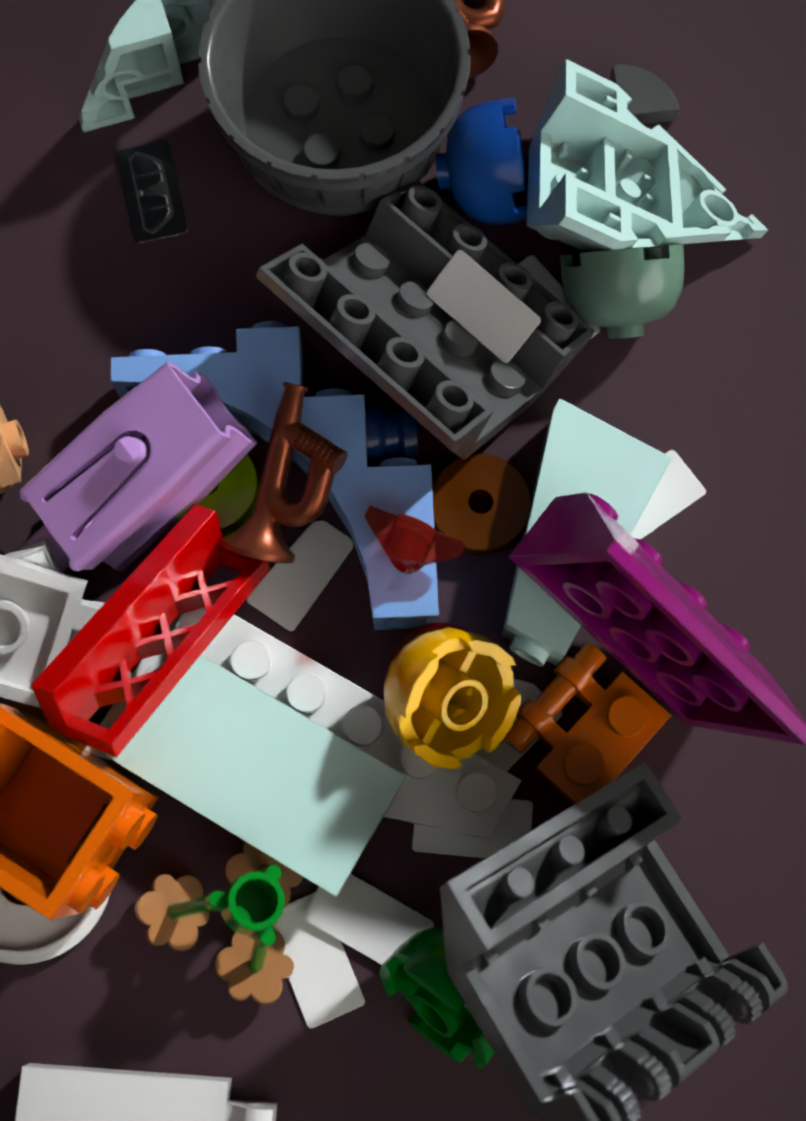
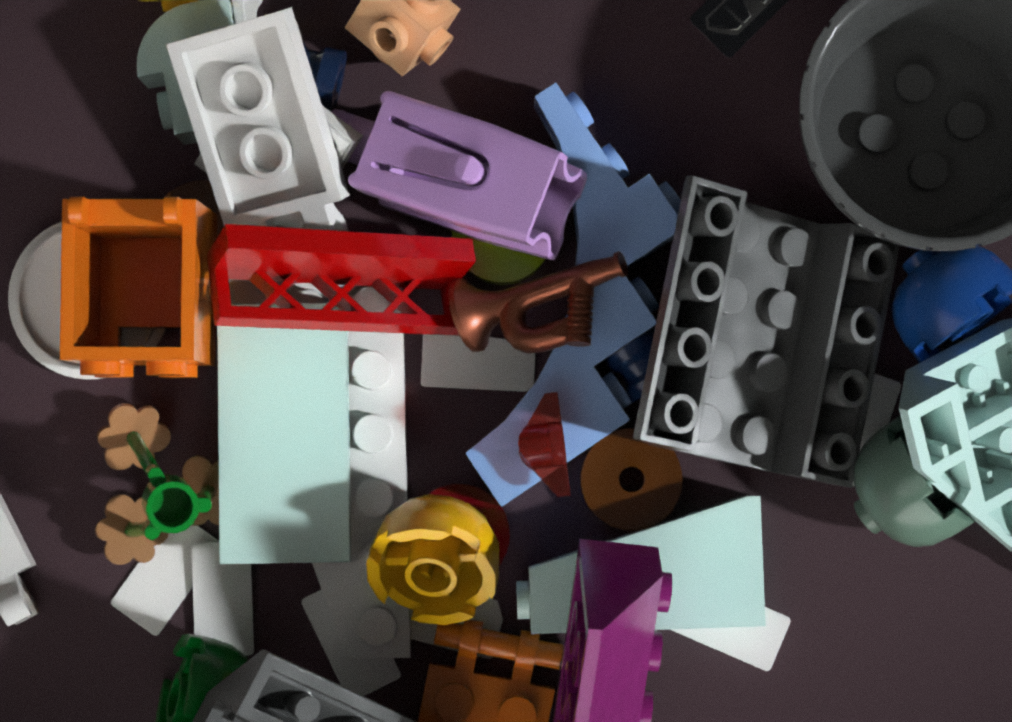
camera: 60 degrees right, 10 degrees up
(483, 306) = (806, 376): white sticker -> none

